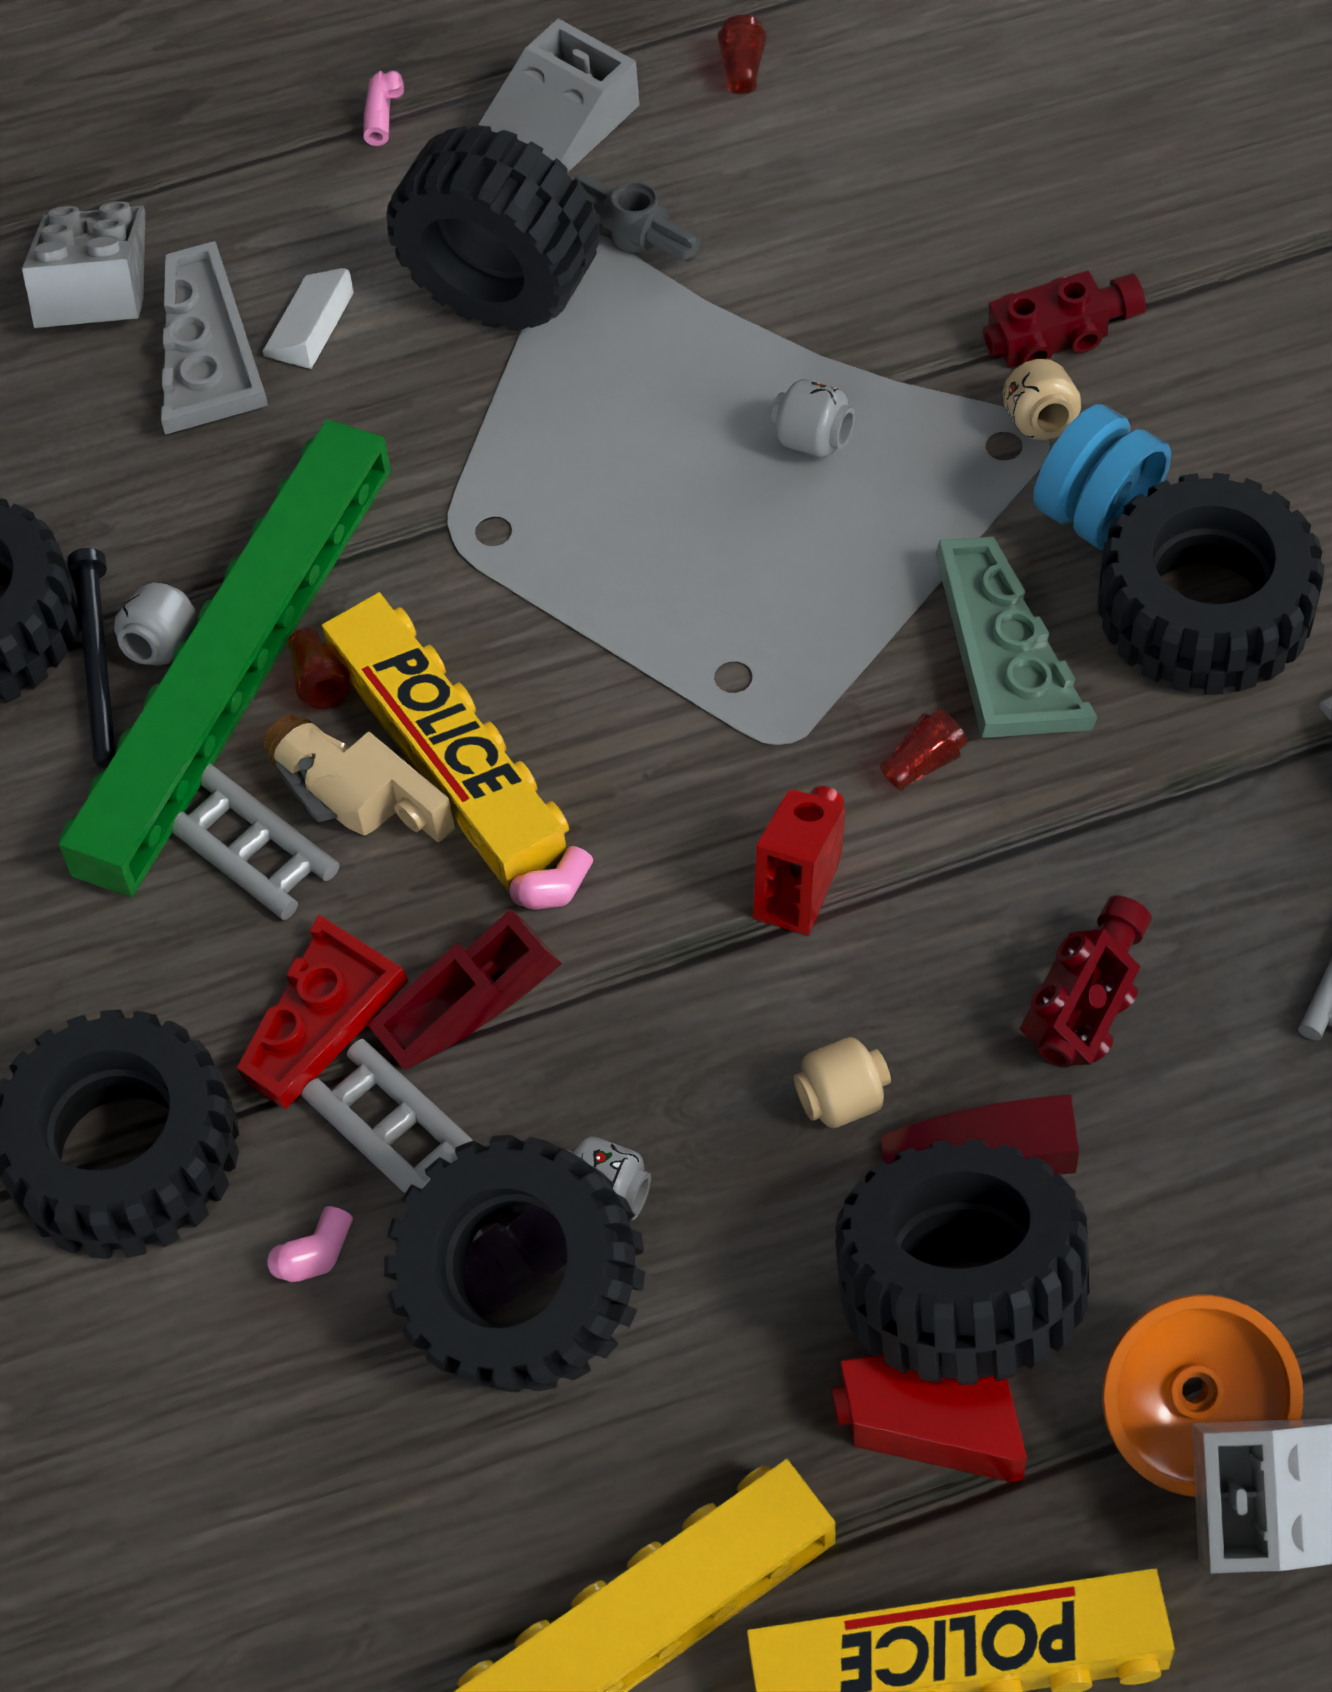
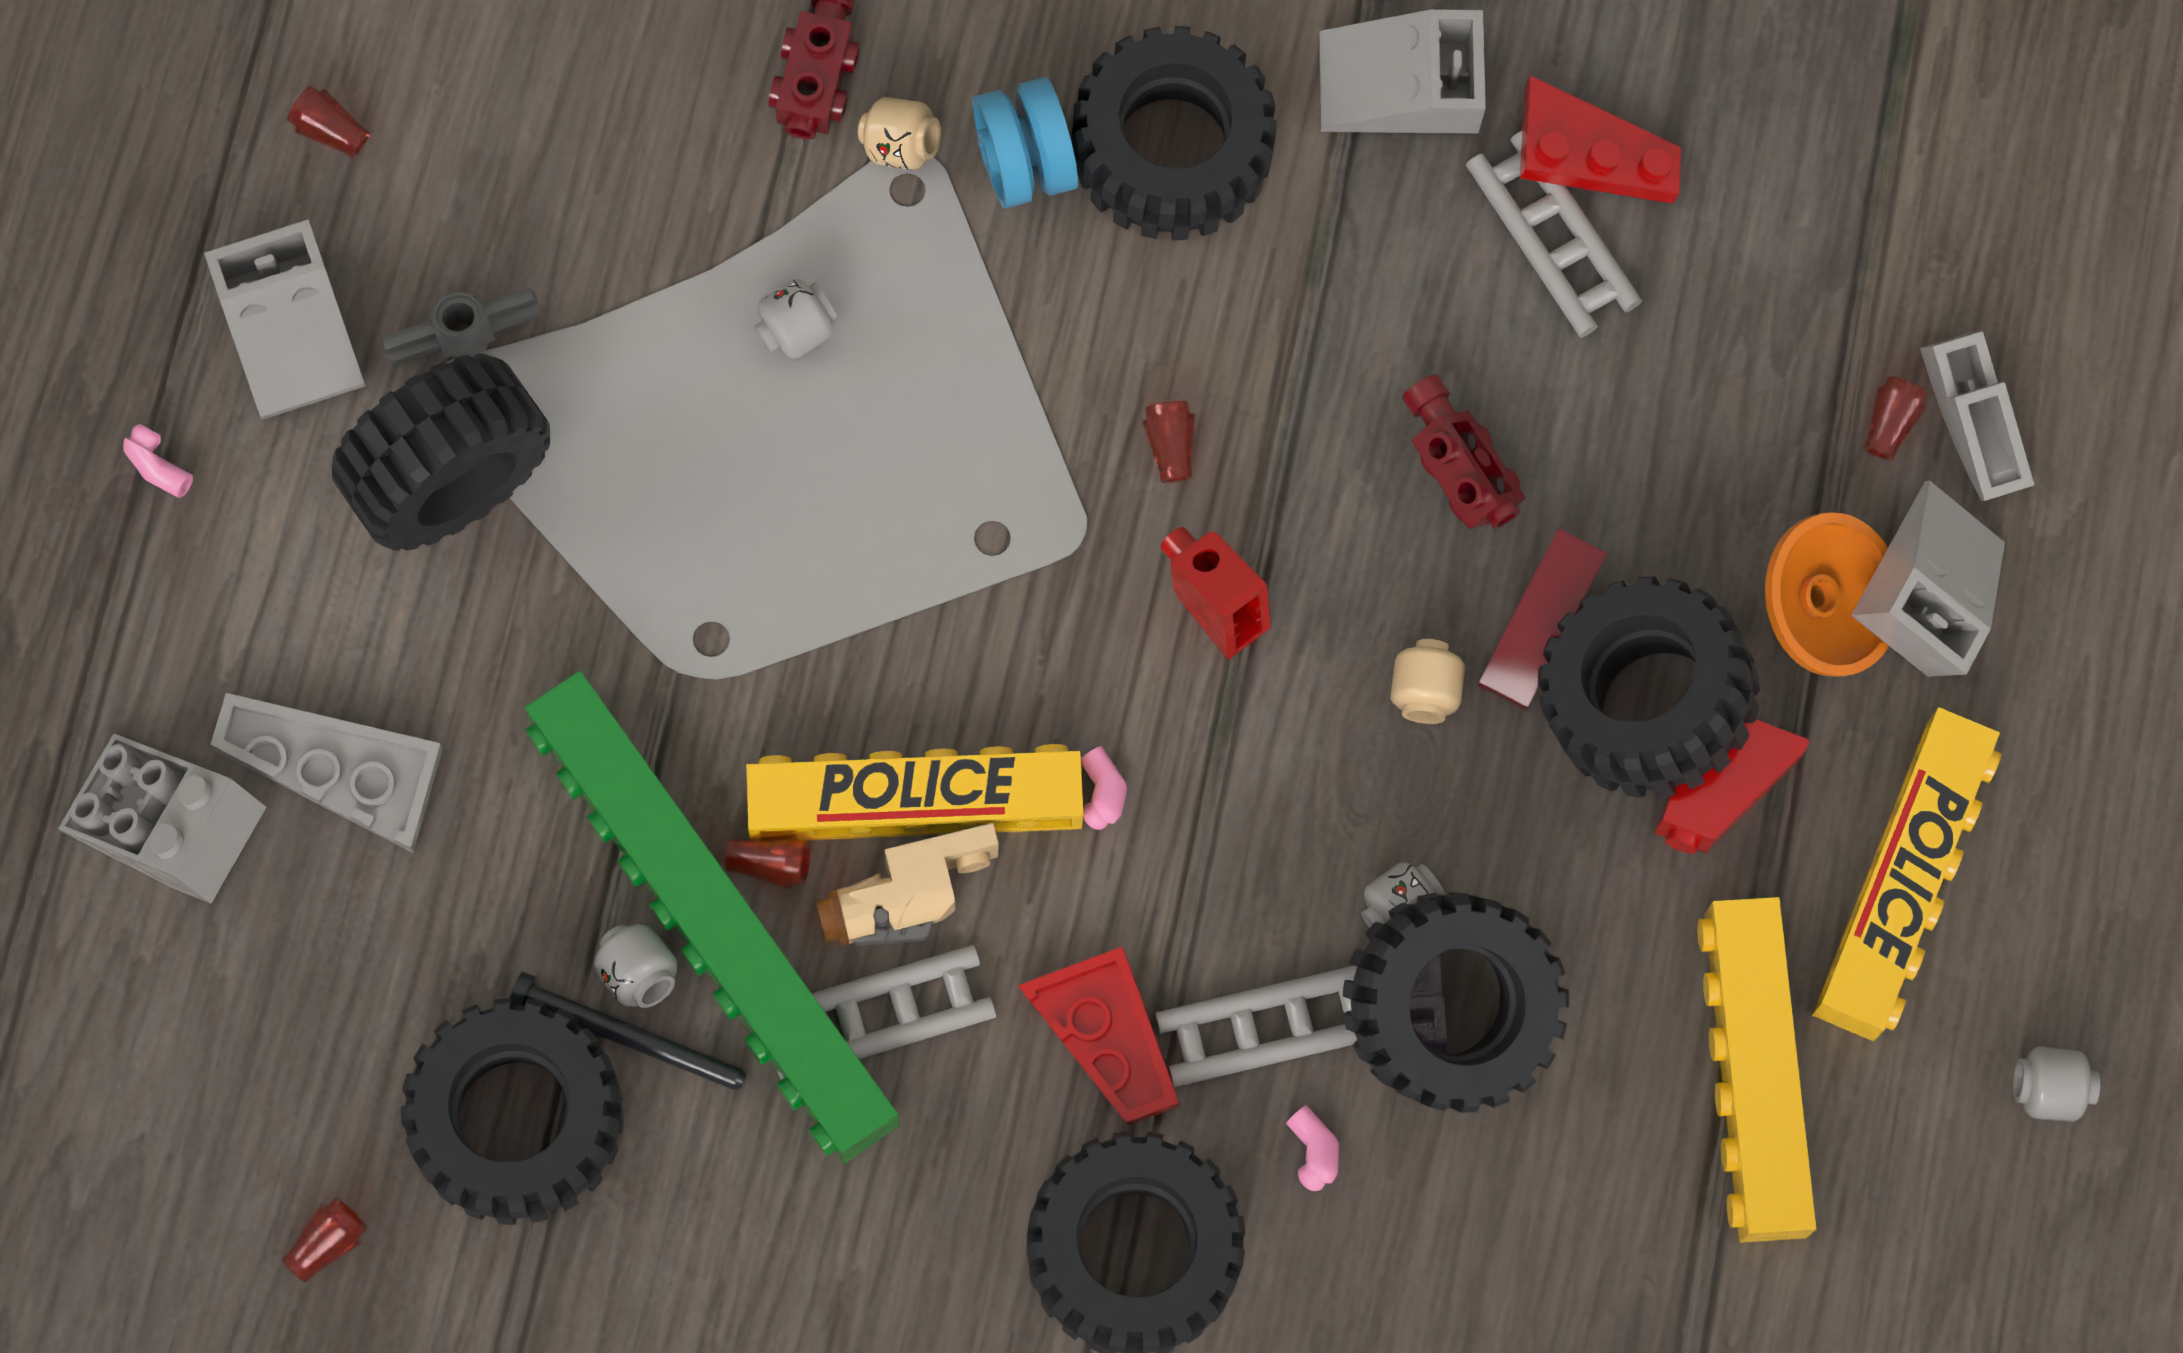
camera: 70 degrees left, 15 degrees up
(310, 318) = (365, 661): white slope -> none
(464, 991) = (1165, 913): dark red slope -> none
(1004, 648) = (1126, 323): sand green wing -> none

